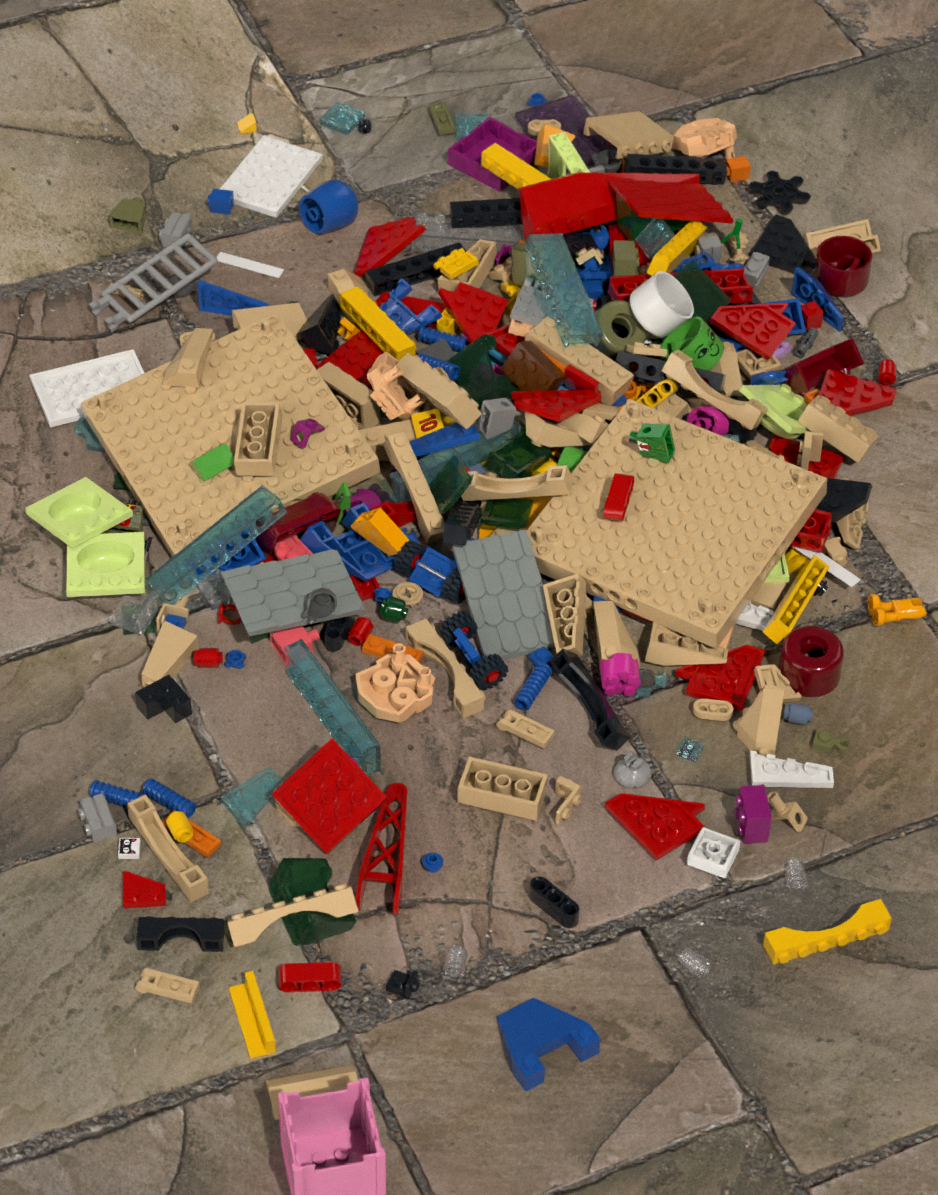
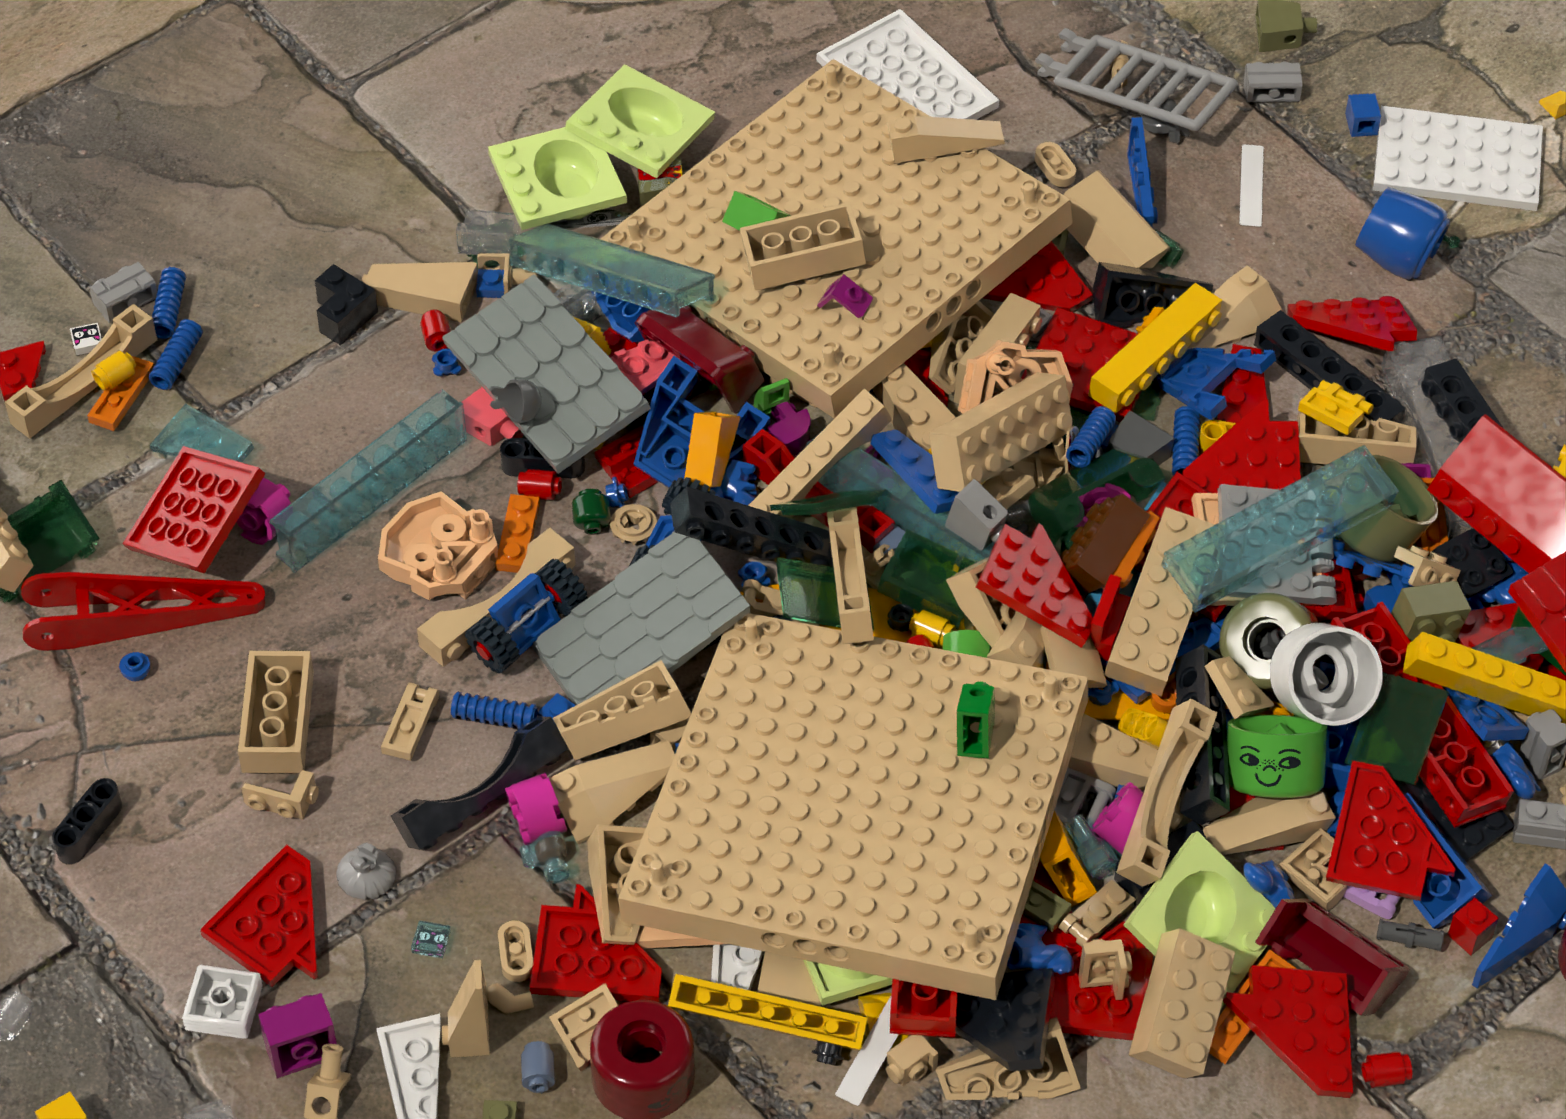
camera: 75 degrees right, 5 degrees up
(619, 496) = (853, 703): red beam -> none

